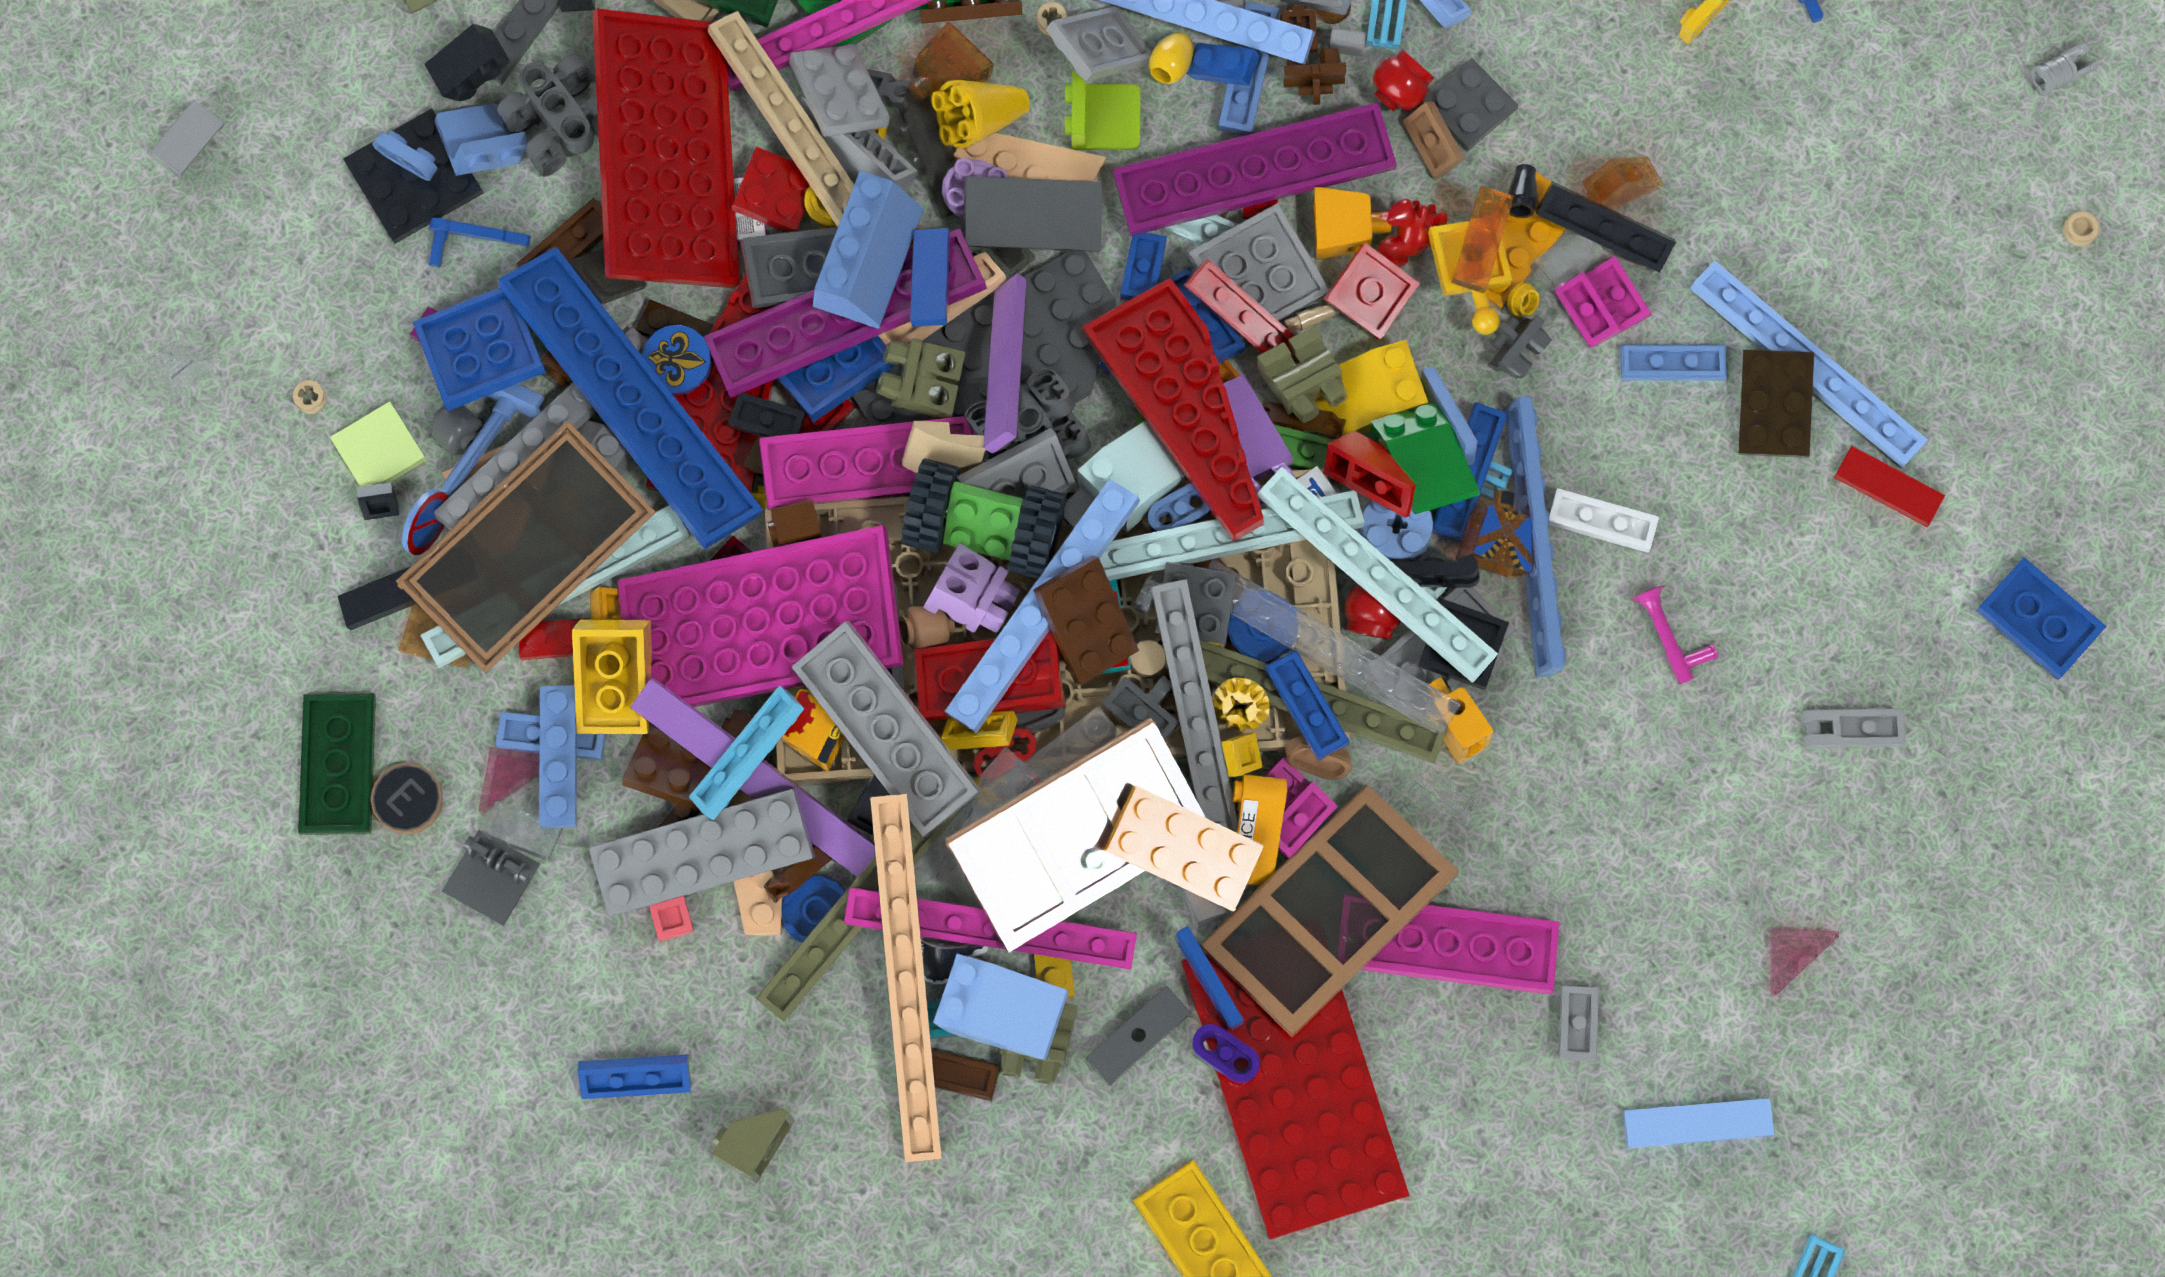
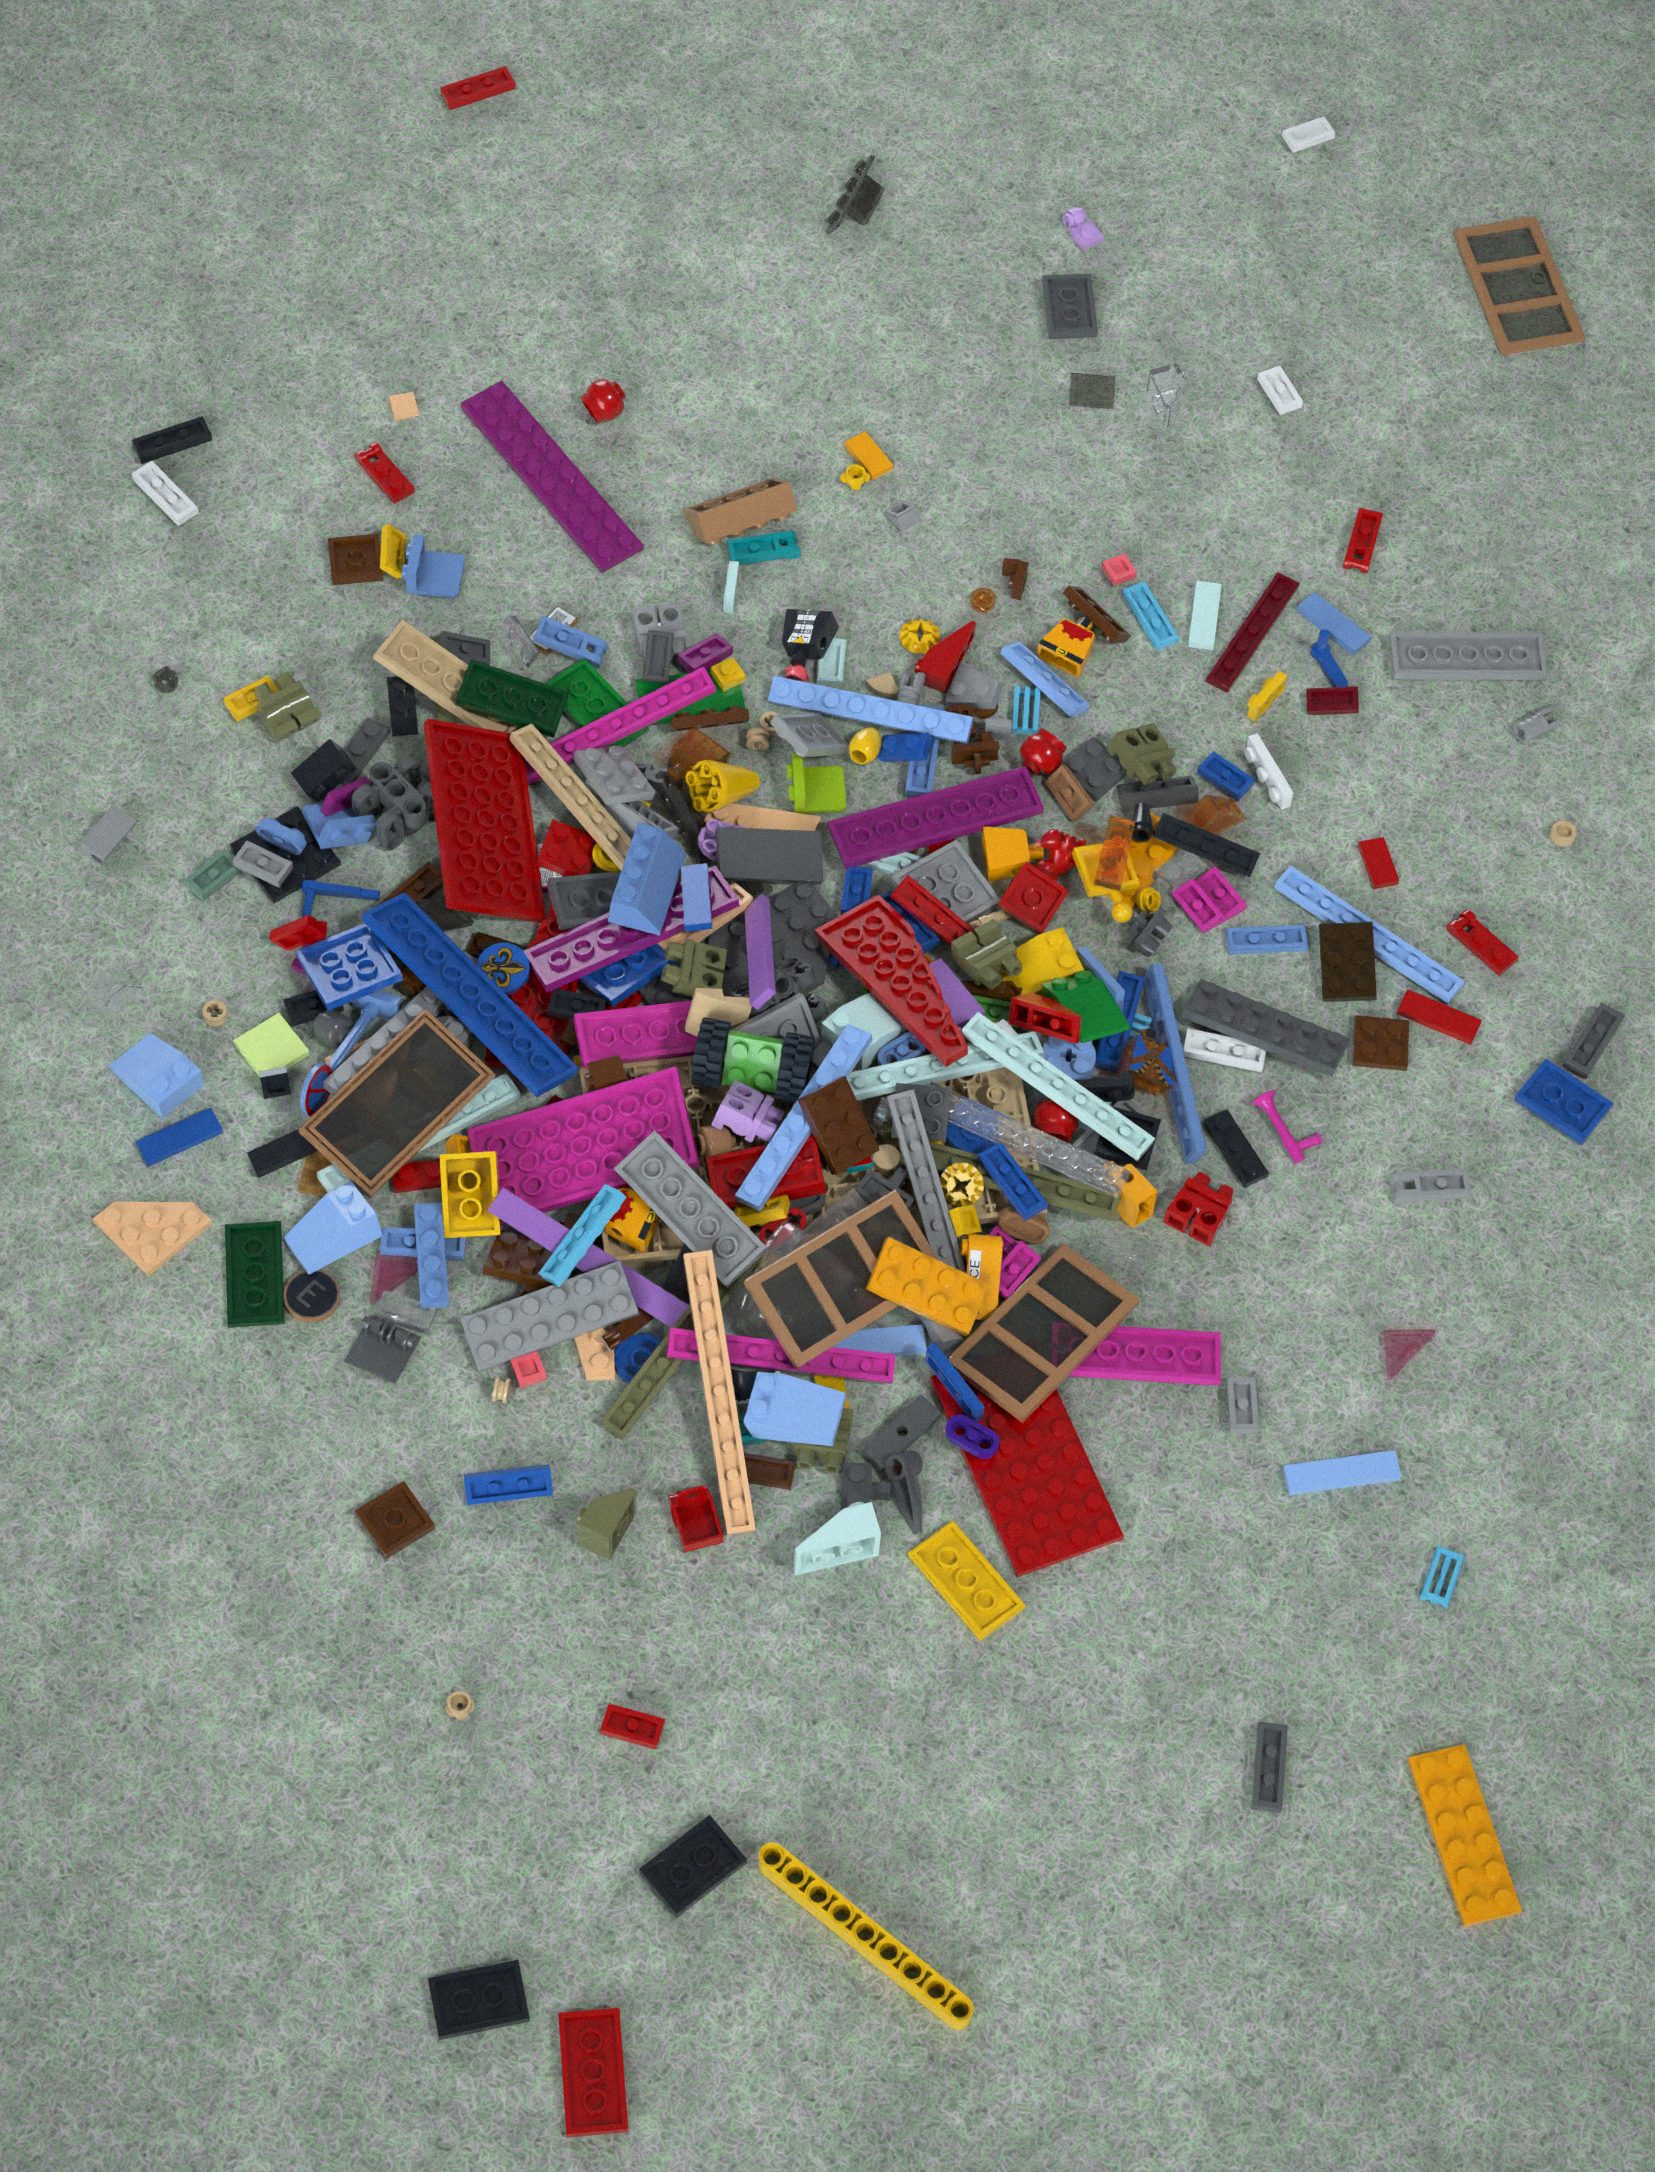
camera: 10 degrees left, 15 degrees down
(212, 695) = (152, 1230): none -> light nougat plate
(231, 479) = (158, 1074): none -> light blue slope
(254, 568) = (179, 1137): none -> blue tile
(319, 201) = (212, 875): none -> sand green plate
(379, 193) = (262, 864): none -> light grey plate
(419, 397) = (305, 1007): none -> black plate
(424, 293) = (299, 932): none -> red plate
(437, 712) = (333, 1228): none -> light blue slope
(485, 105) = (341, 798): none -> magenta tile
(489, 1115) = (395, 1519): none -> reddish brown plate
(635, 945) = (501, 1390): none -> tan bush
(867, 1136) = (695, 1518): none -> red piece
(1032, 41) = (757, 739): none -> tan bush
(1053, 1182) = (843, 1539): none -> light aqua slope
(1077, 1110) = (858, 1487): none -> dark grey plate
(1131, 907) = (890, 1340): none -> light blue tile
(1137, 1109) = (902, 1474): none -> dark grey piece
(1536, 87) = (1143, 753): none -> olive hips
(1550, 143) = (1158, 793): none -> dark grey slope
(1552, 739) = (1203, 1204): none -> red hips
(1604, 659) = (1235, 1148): none -> black plate
(1641, 124) = (1225, 776): none -> blue plate
(1660, 492) = (1266, 1027): none -> dark grey plate
(1698, 121) = (1268, 771): none -> white plate
(1793, 20) = (1332, 700): none -> dark red tile
(1809, 519) = (1380, 1043): none -> reddish brown plate
(1831, 259) = (1378, 863): none -> red tile
(1957, 382) = (1482, 942): none -> red plate
(2090, 532) = (1593, 1040): none -> dark grey plate

